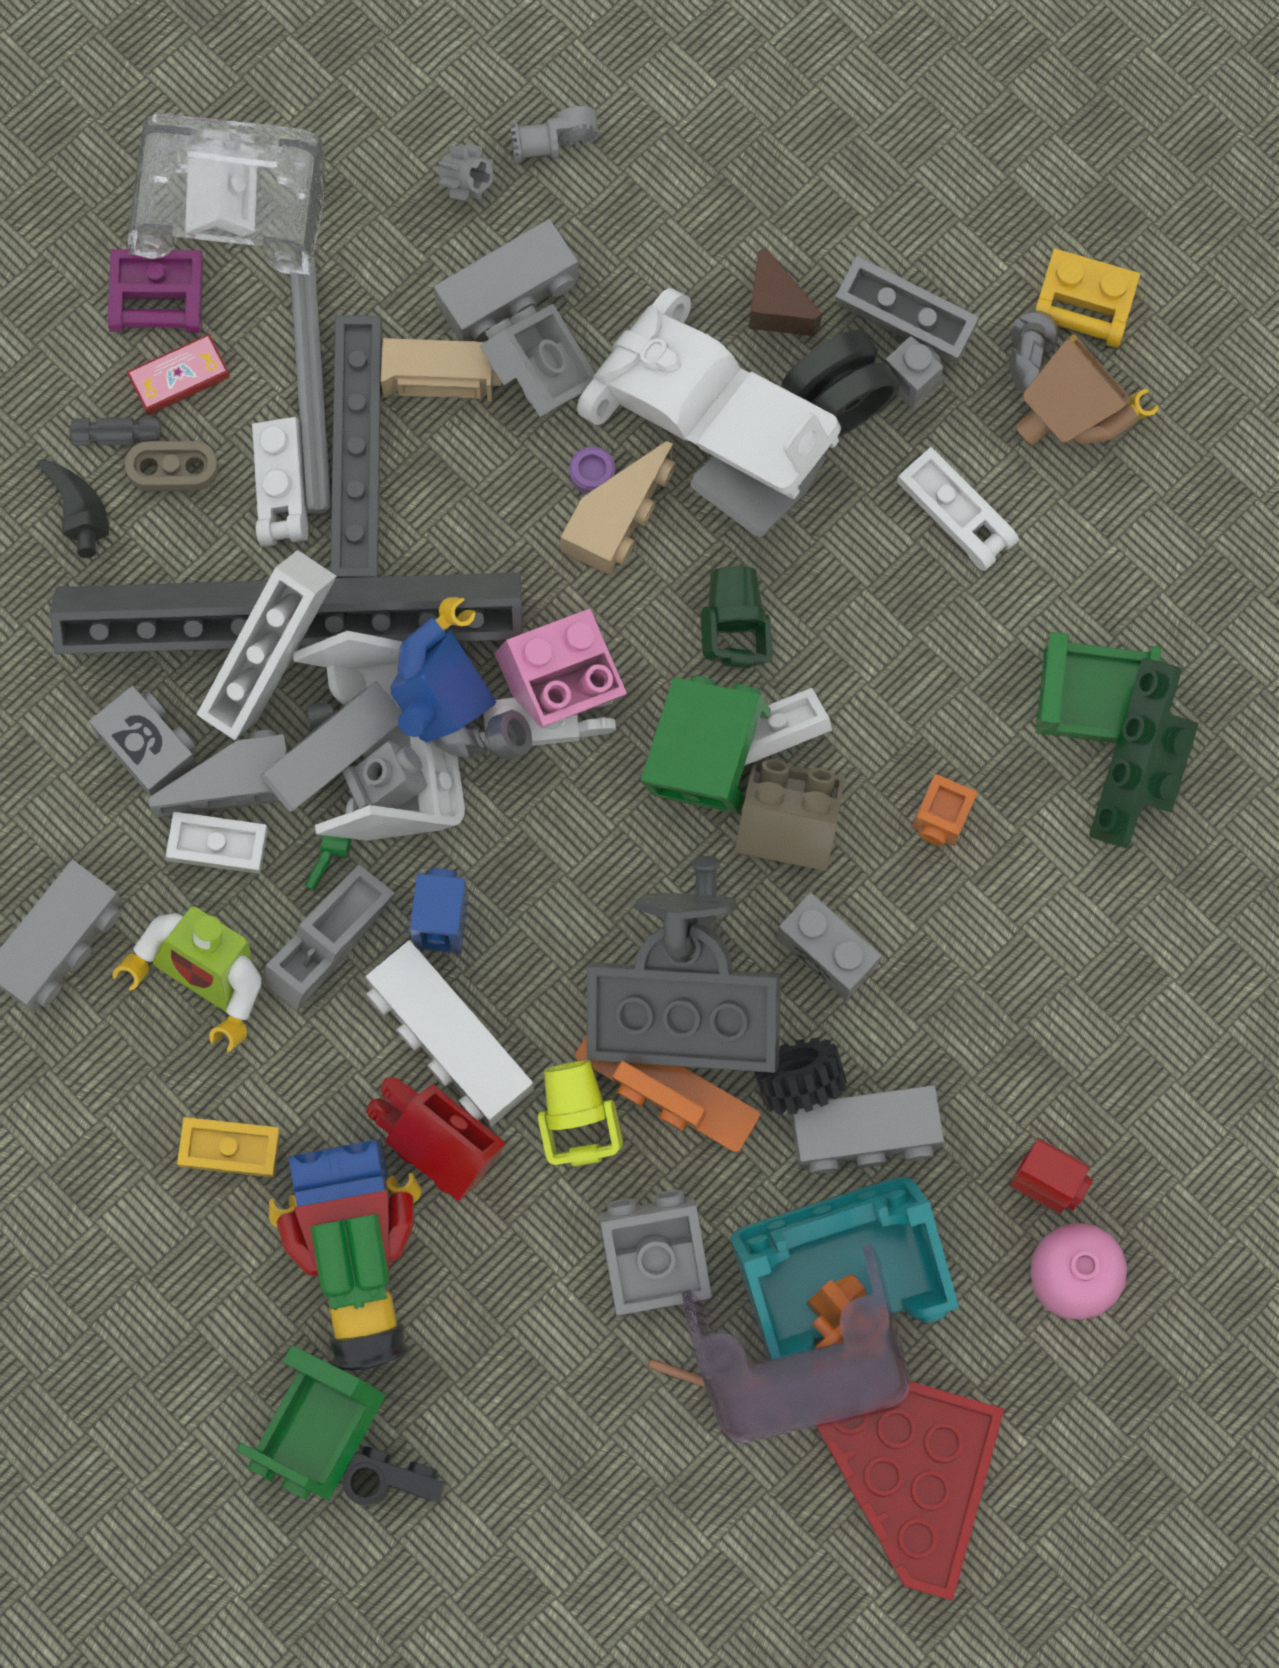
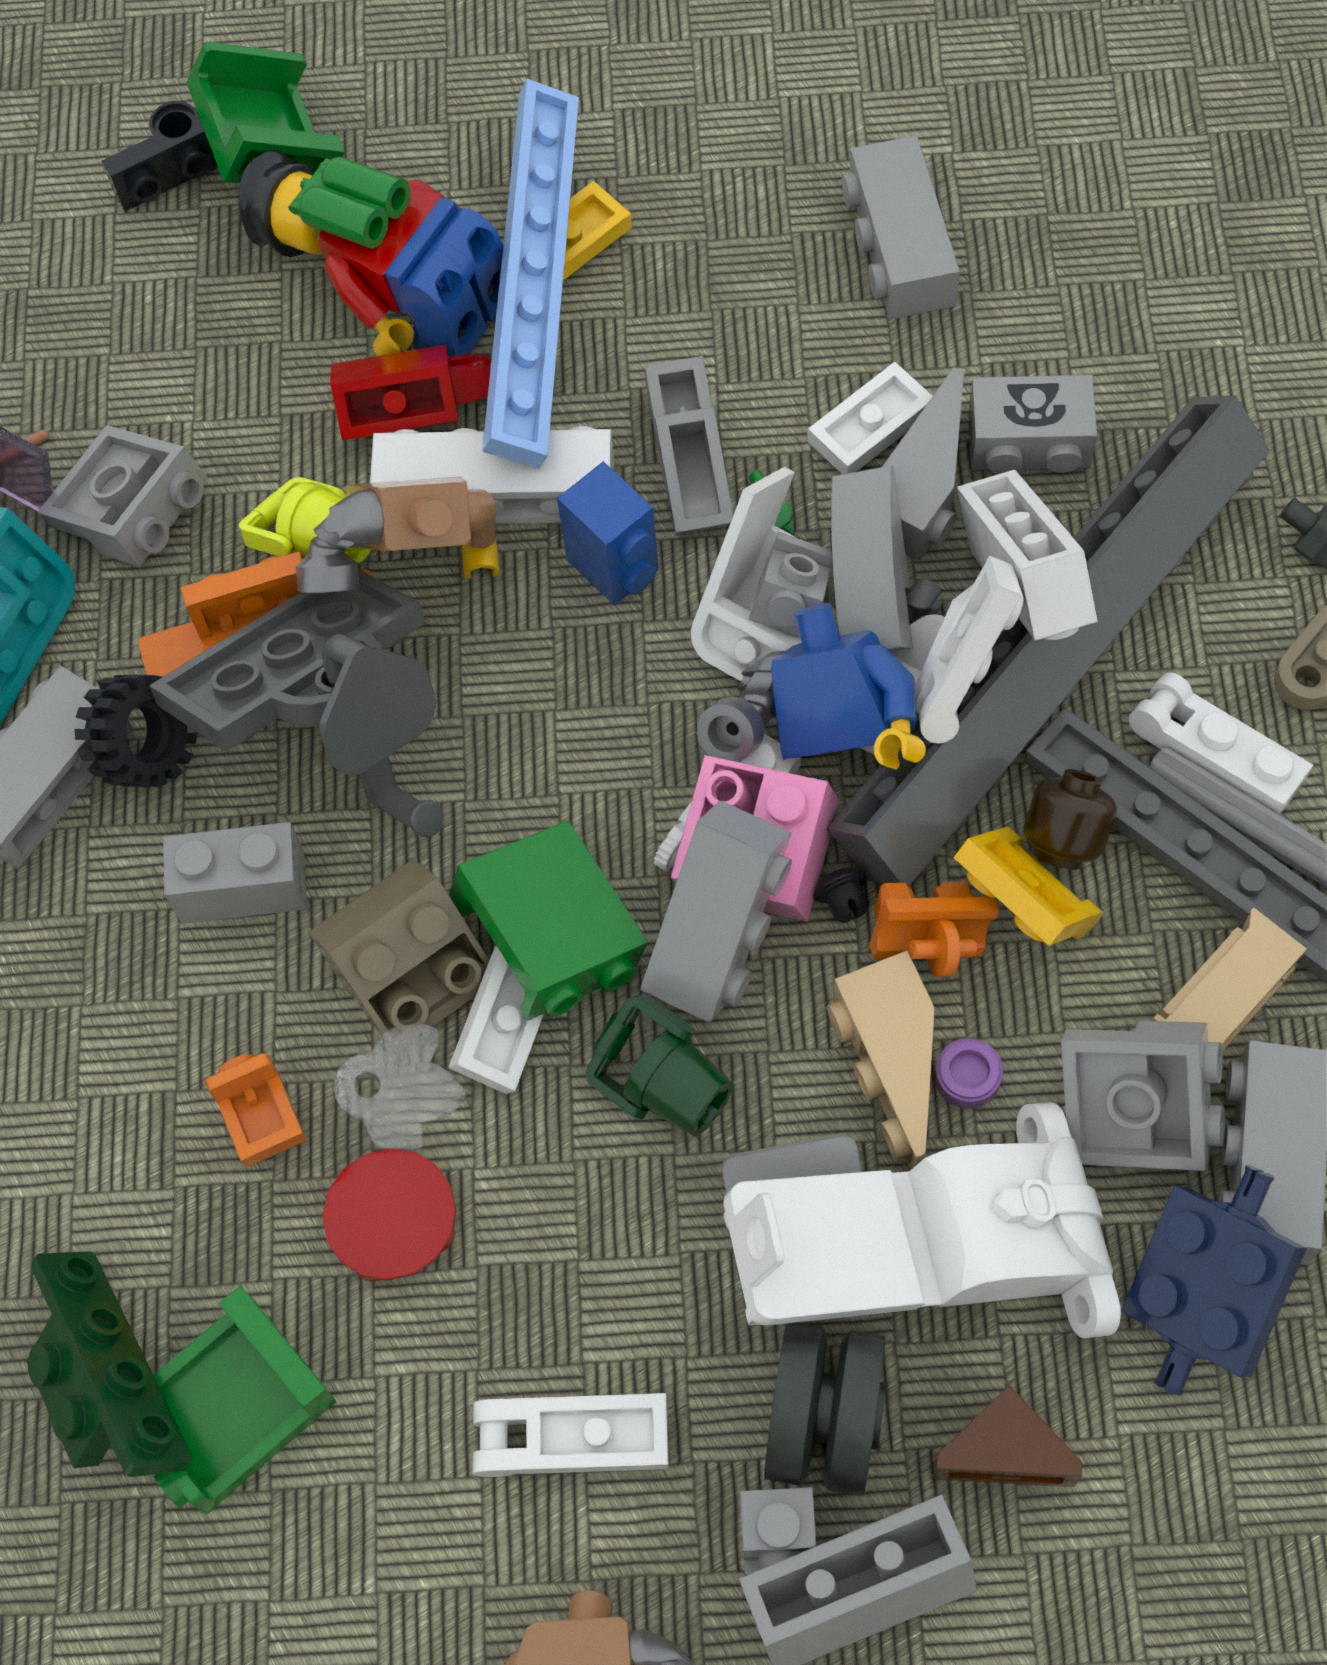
camera: 140 degrees right, 10 degrees down
(203, 958) = (755, 314): torso -> none
(288, 1123) = (531, 277): none -> light blue plate
(370, 610) = (967, 649): none -> white plate
(403, 518) = (1069, 819): none -> dark brown head
(466, 507) = (1040, 902): none -> yellow plate
(543, 553) = (933, 928): none -> orange hips
(544, 610) = (843, 893): none -> black piece
(546, 1023) = (400, 518): none -> torso
(610, 257) = (1213, 1280): none -> dark blue plate
(630, 641) = (717, 911): none -> light grey brick
(860, 746) = (409, 1087): none -> clear plate
(932, 698) = (389, 1214): none -> red dish

